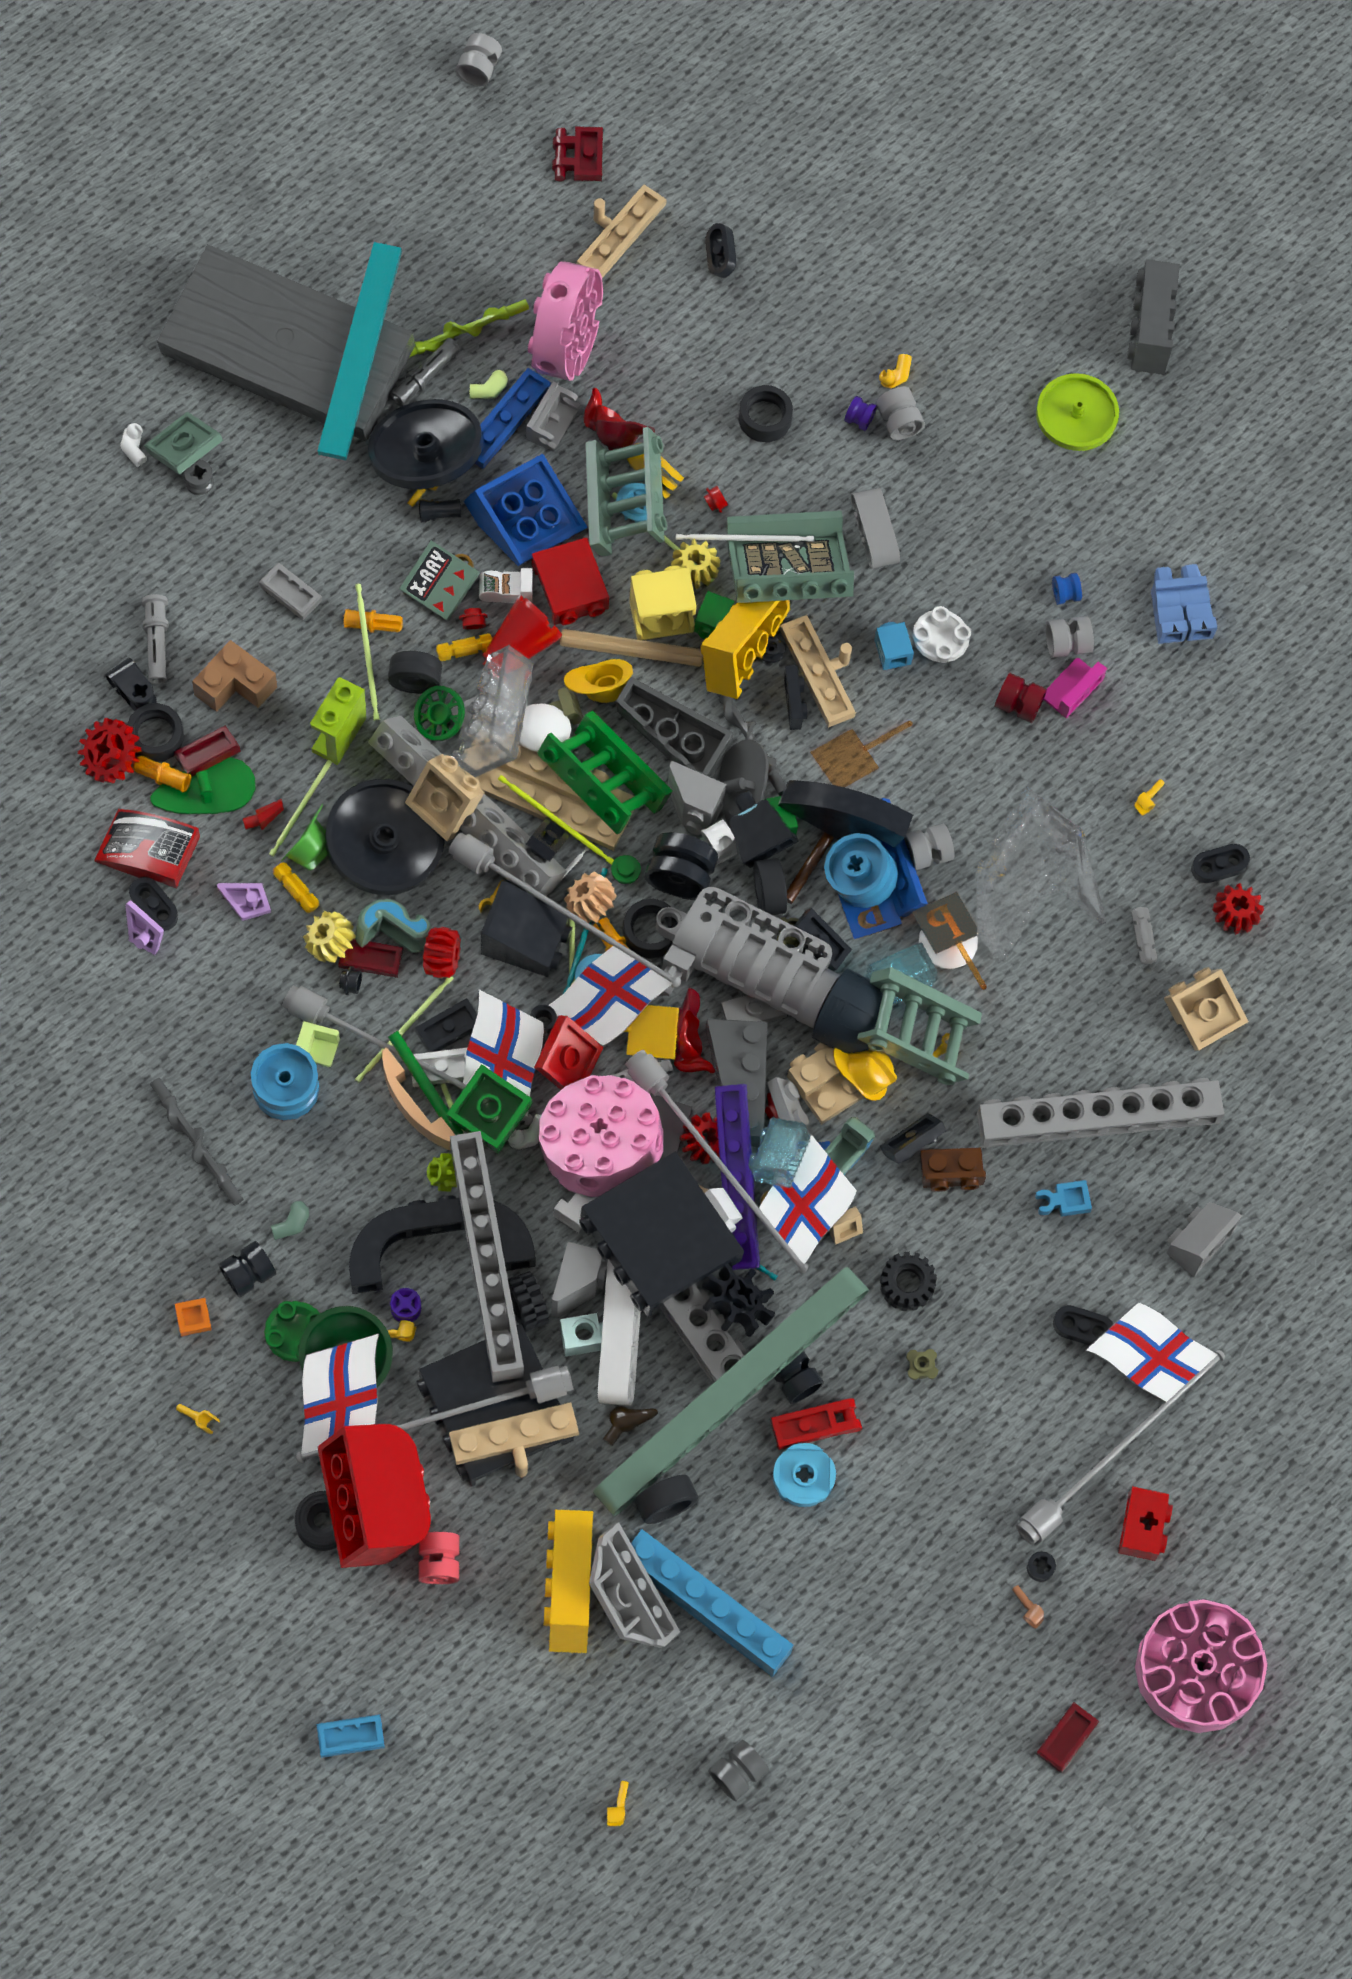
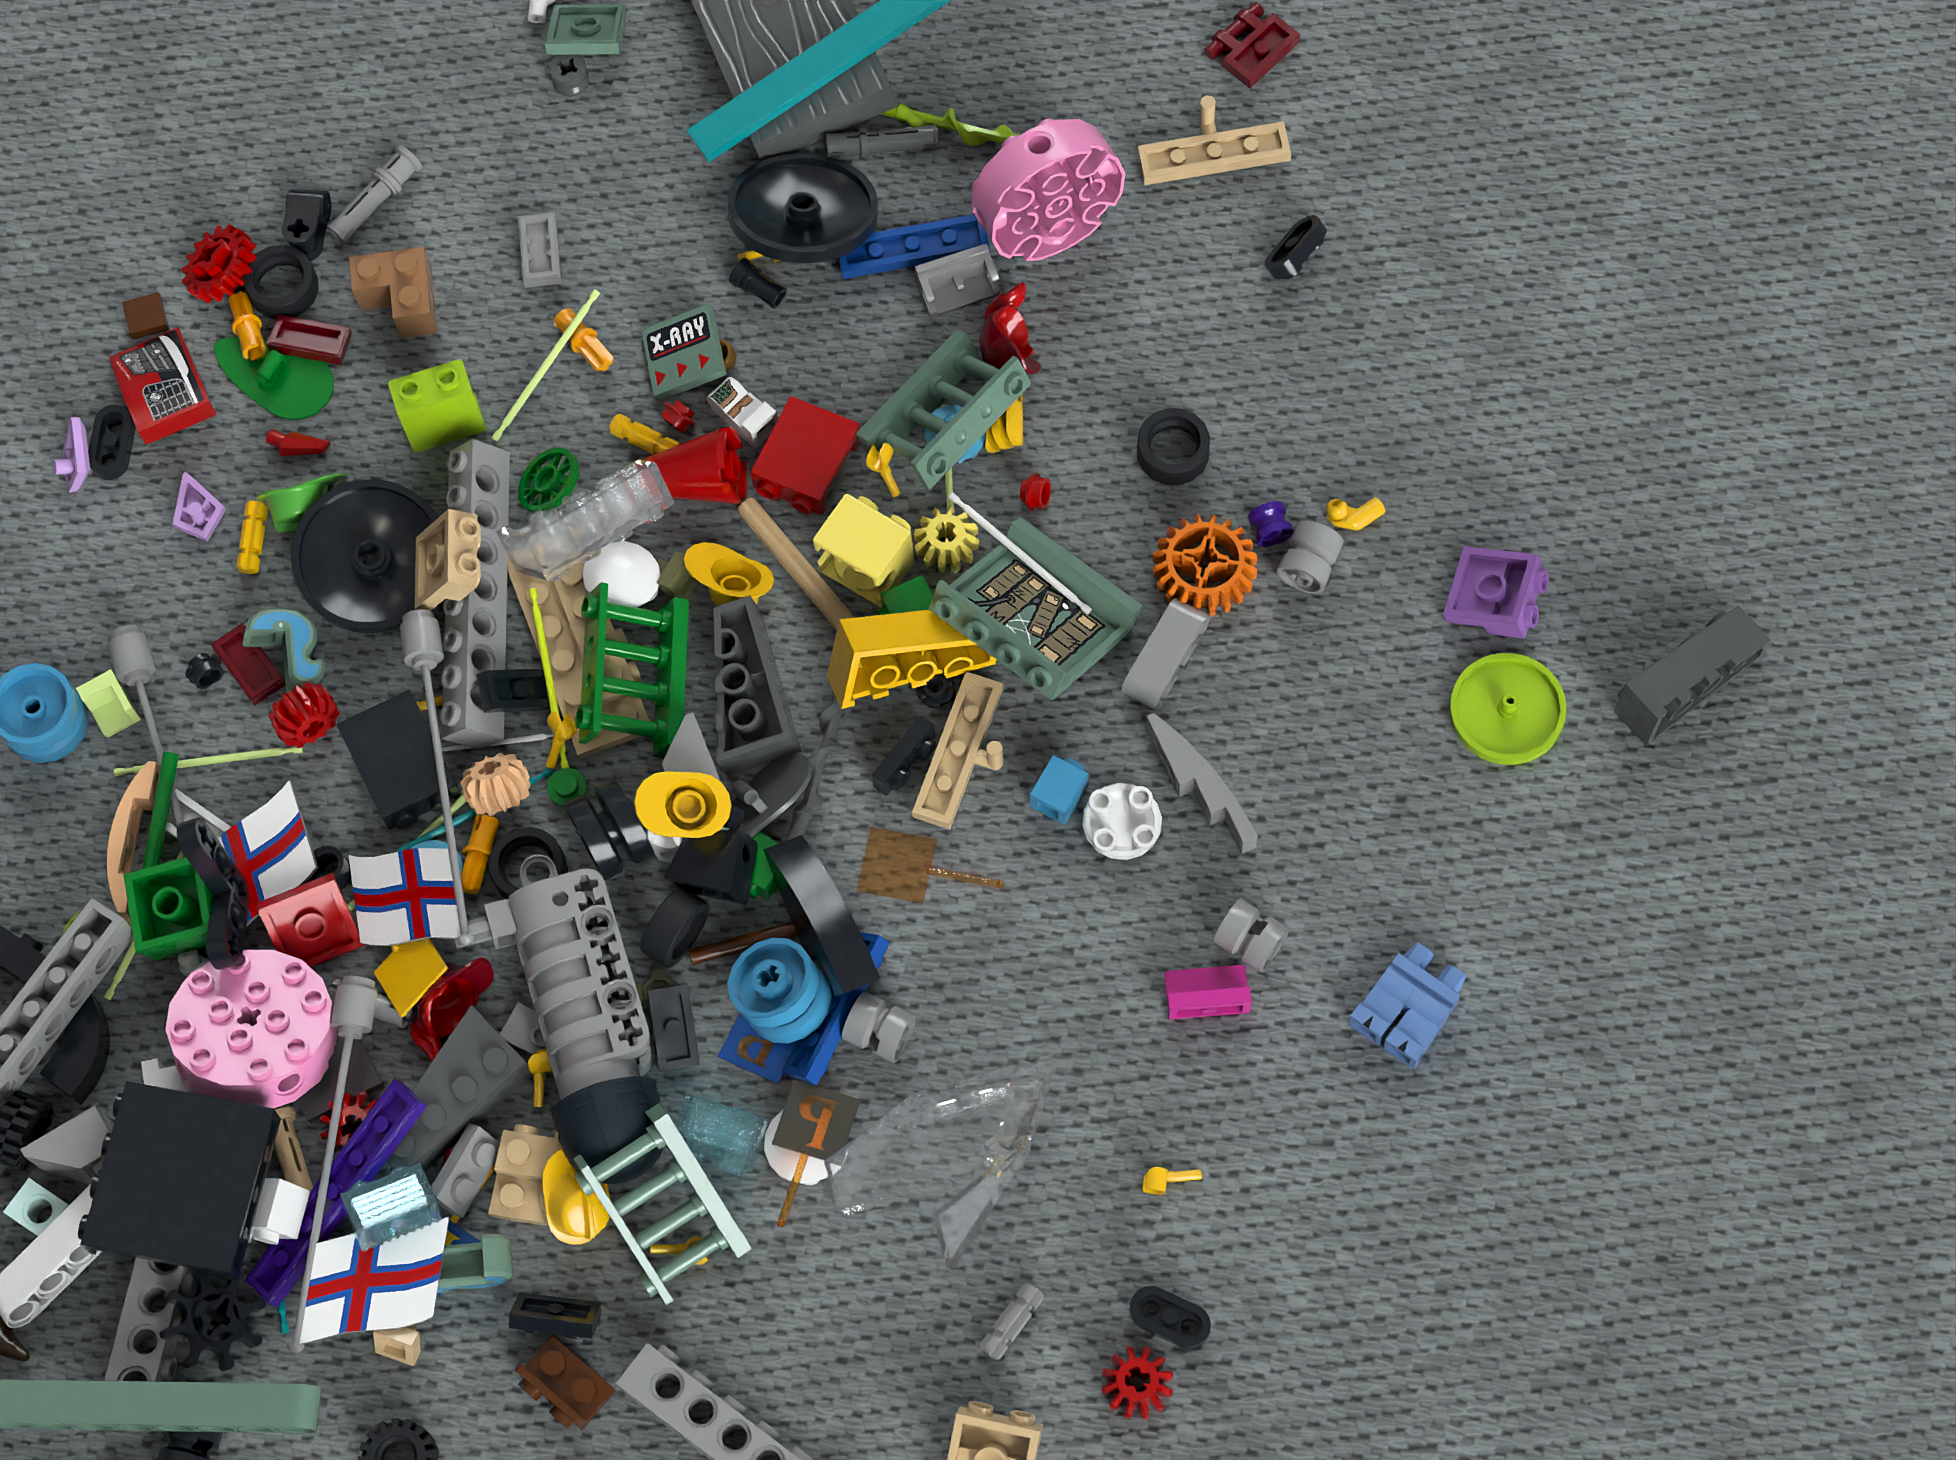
camera: 55 degrees right, 0 degrees up
(91, 818) = (145, 315): none -> reddish brown tile
(295, 816) = (339, 465): yellowish green piece -> none
(329, 937) = (222, 609): light yellow gear -> none
(414, 671) = (563, 419): black tyre -> none
(447, 1026) = (237, 791): black plate -> none
(491, 388) = (930, 206): yellowish green arm -> none
(500, 1067) = (228, 887): none -> black beam
(525, 510) = (835, 351): blue slope -> none
(595, 837) = (562, 731): none -> yellow hand
(619, 550) = (880, 462): none -> yellow hand
(727, 807) = (682, 804): none -> yellow piece
(772, 1017) = (538, 1065): none -> yellow hand
(849, 448) = (1219, 567): none -> orange gear
(951, 577) = (1192, 772): none -> light grey slope
(1013, 353) = (1497, 591): none -> medium lavender plate
(1020, 697) = (1134, 958): dark red wheel -> none
(1067, 588) = (1302, 883): blue wheel -> none

